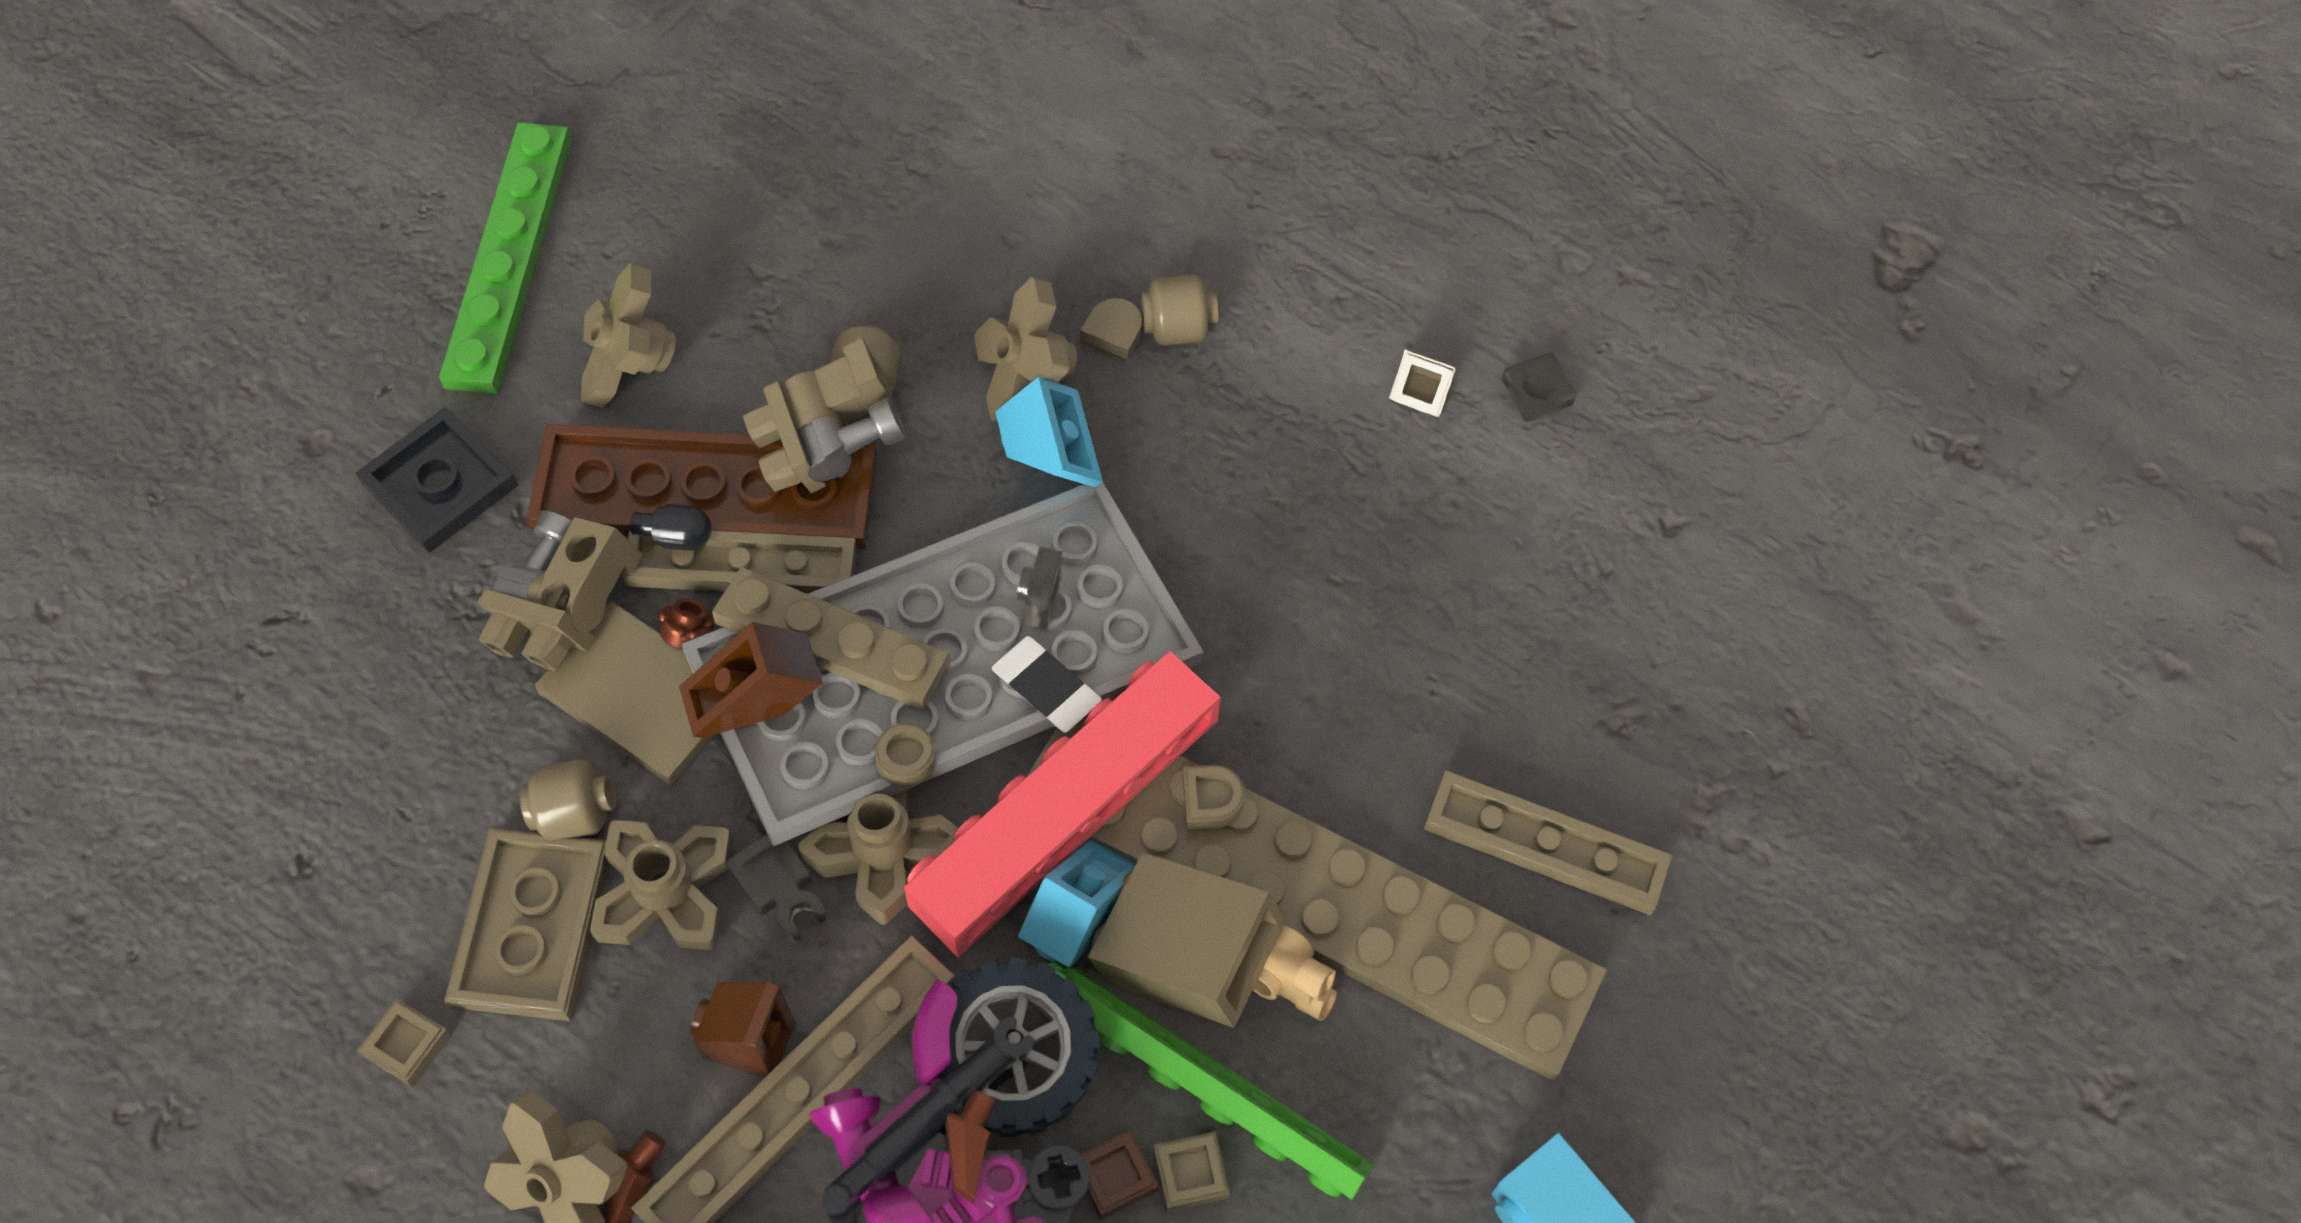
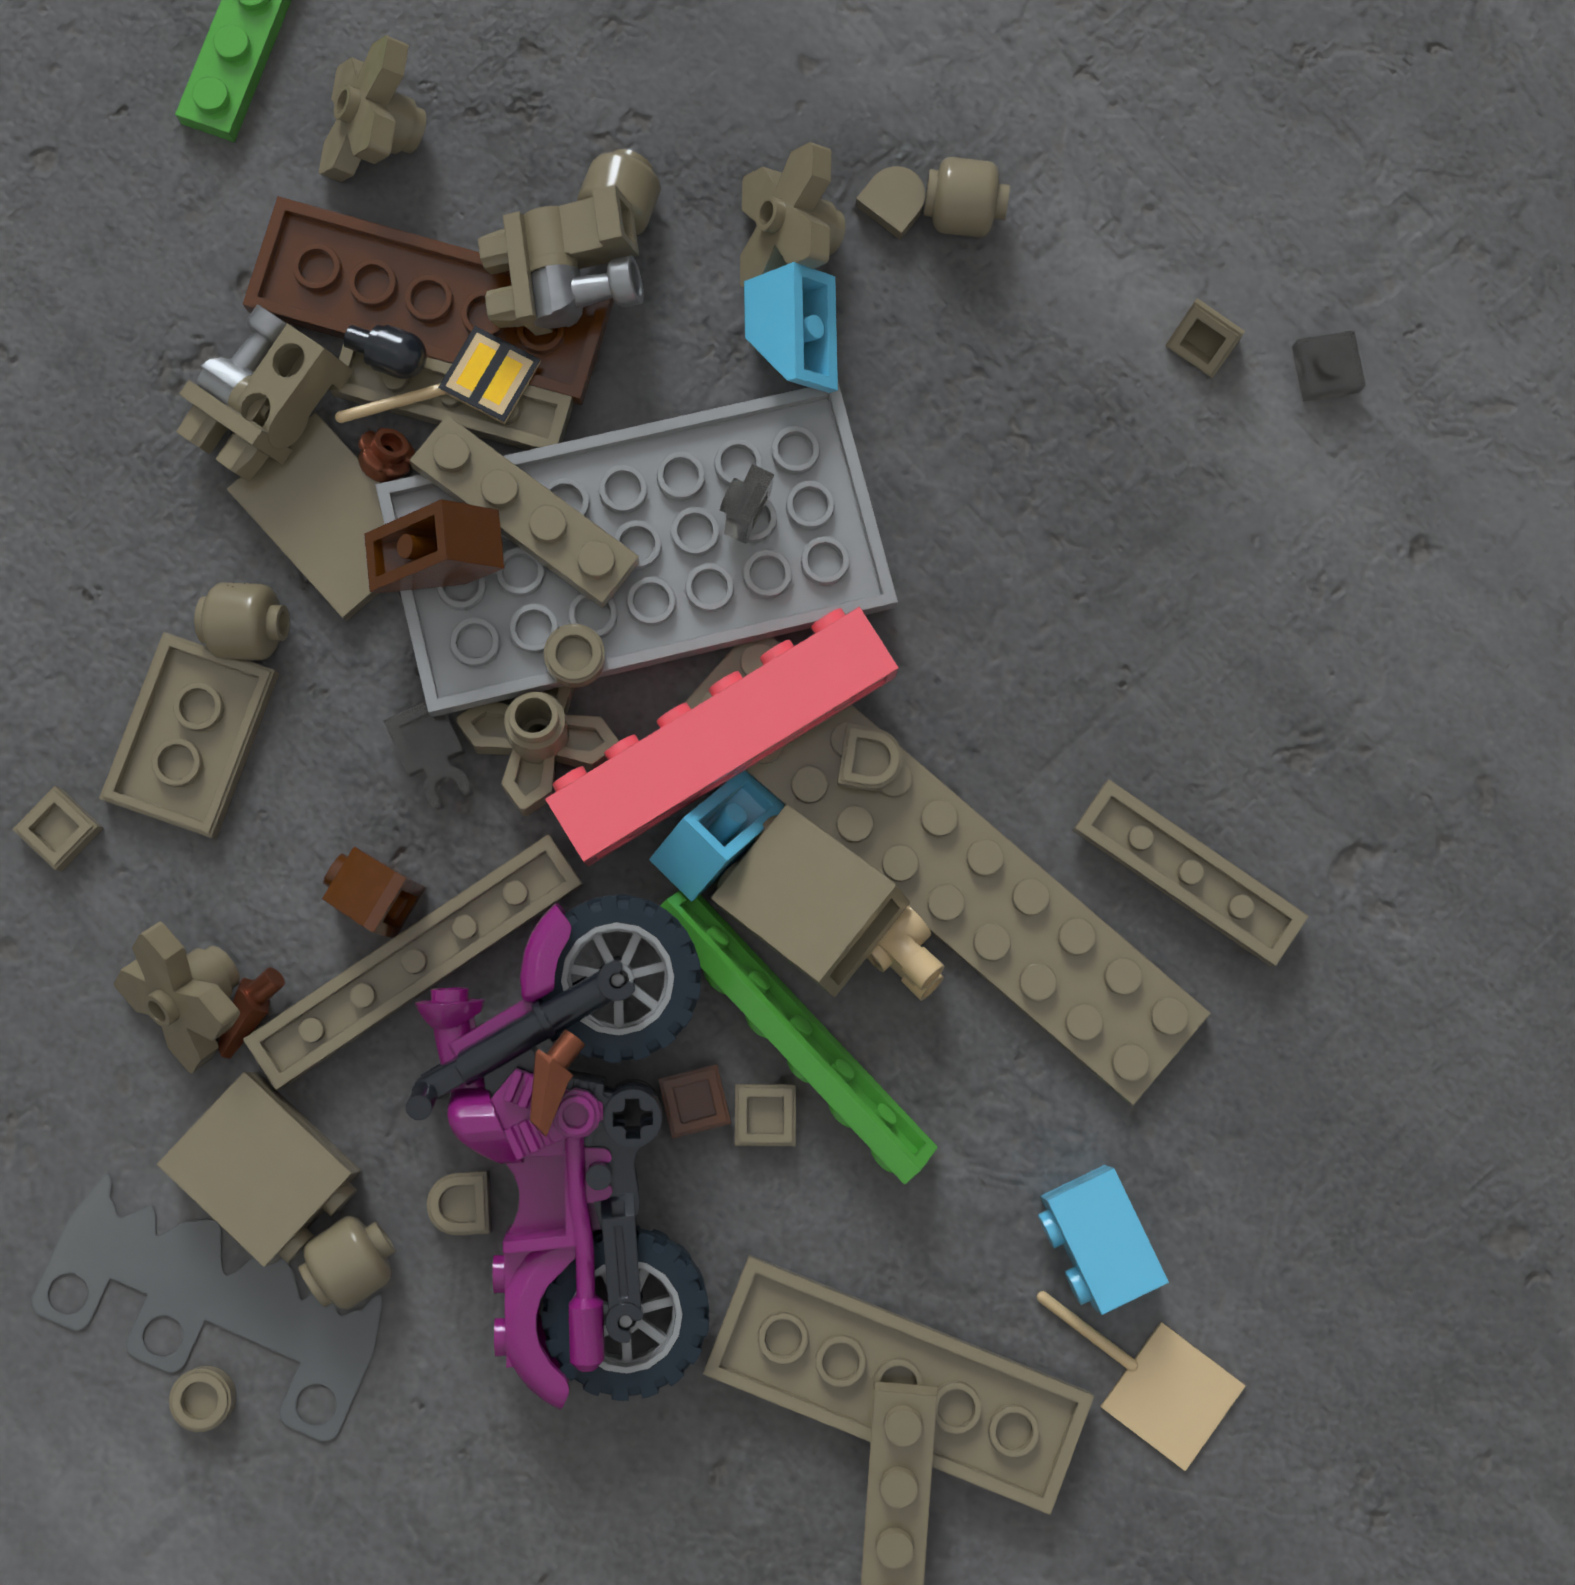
camera: 10 degrees right, 20 degrees up
(437, 479) = (158, 235): black plate -> none
(662, 884) = (305, 701): dark tan plant -> none
(767, 534) = (484, 376): none -> piece
(1046, 684) = (731, 605): sticker -> none

